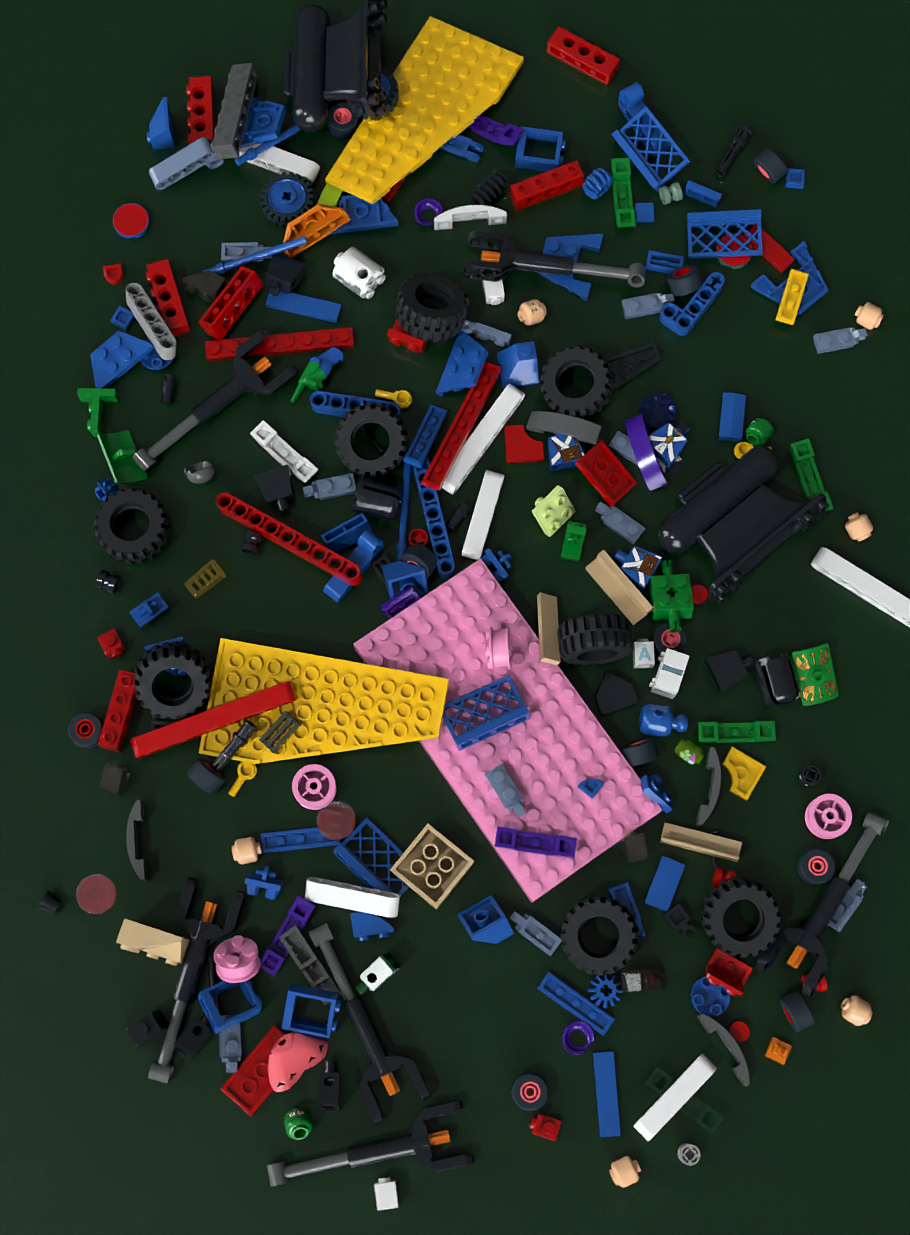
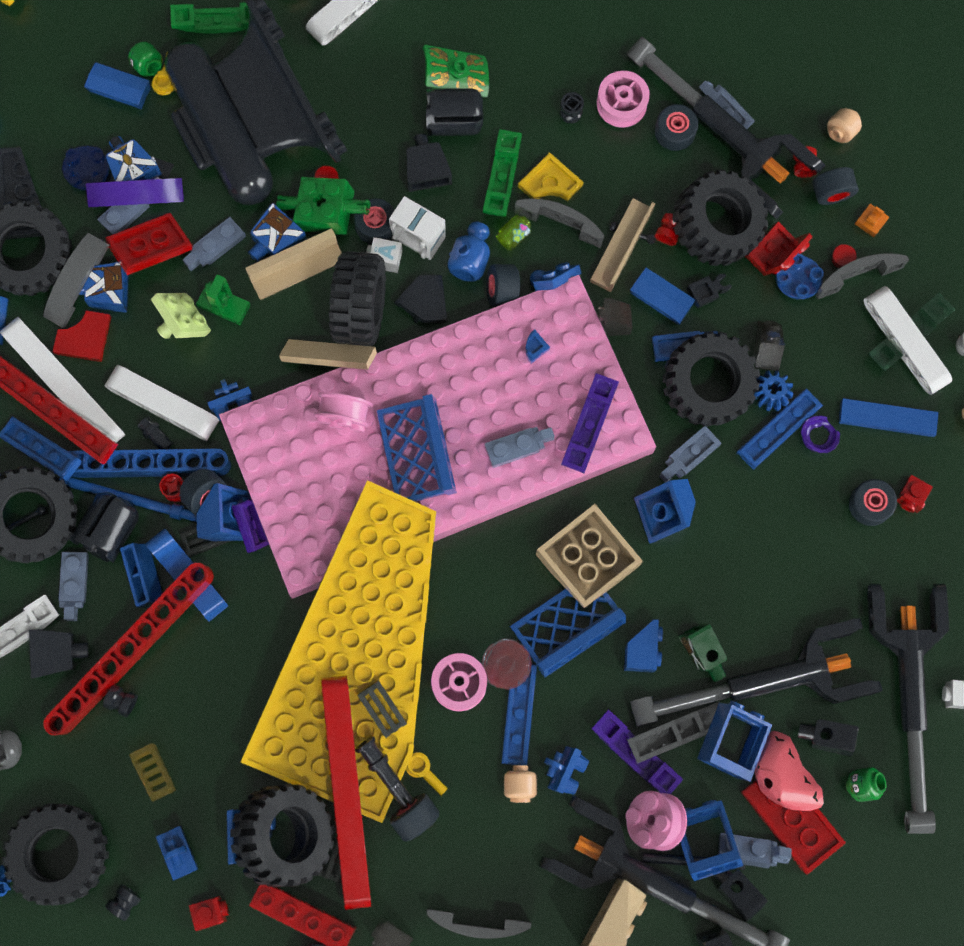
camera: 80 degrees left, 0 degrees up
(352, 897) = (607, 661): white beam -> none

